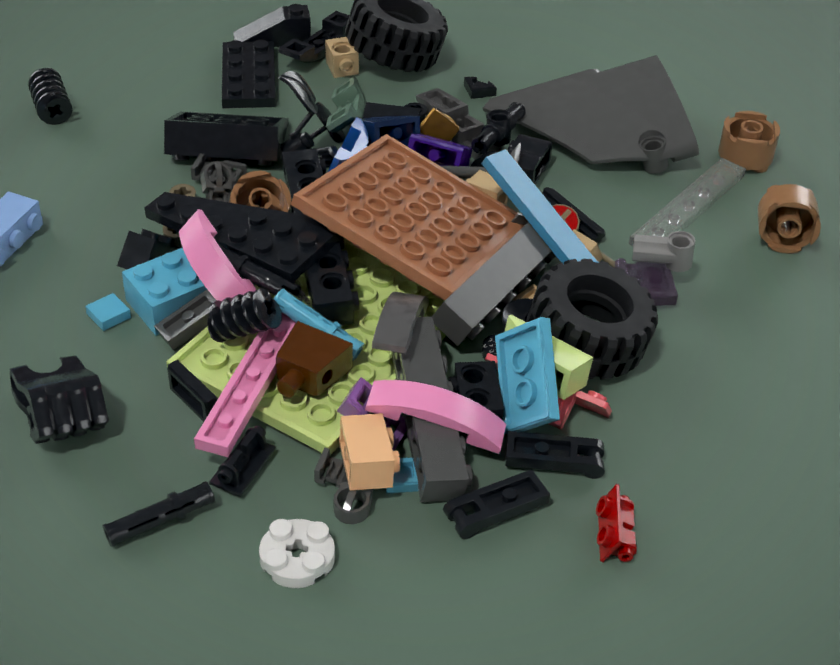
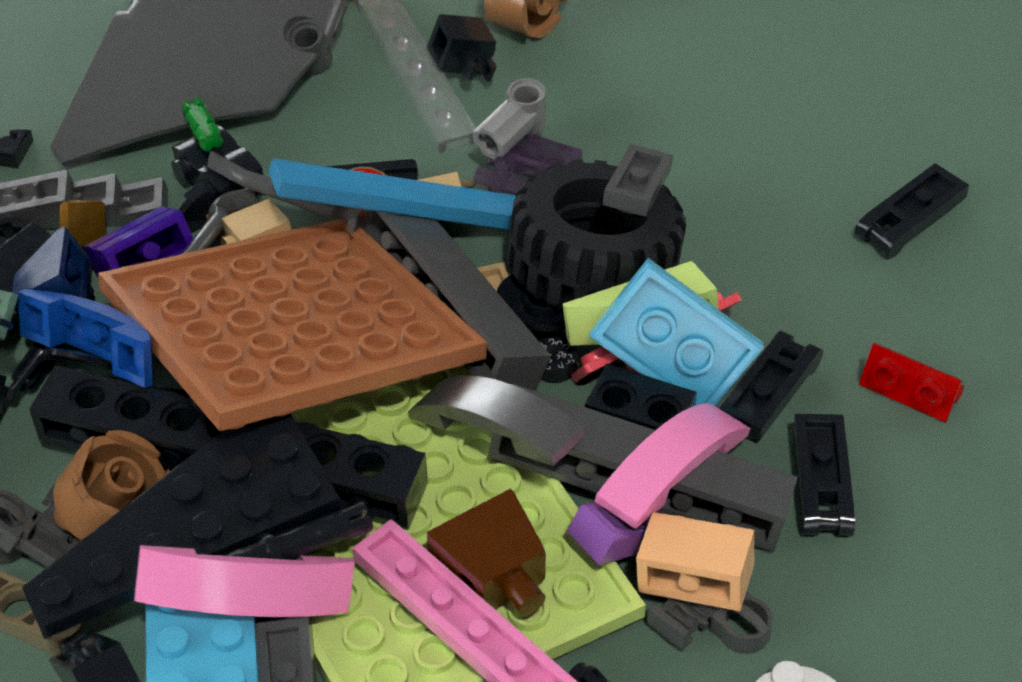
camera: 60 degrees left, 5 degrees up
(243, 315) = (374, 591): black piece -> none
(303, 313) = (417, 519): medium azure pin -> none
(498, 127) = (147, 160): black pin -> none
(540, 133) = (202, 124): none -> green axle
(638, 306) = (637, 180): none -> dark grey plate
(717, 212) = (463, 46): none -> black brick
(781, 478) = (911, 209): none -> black plate

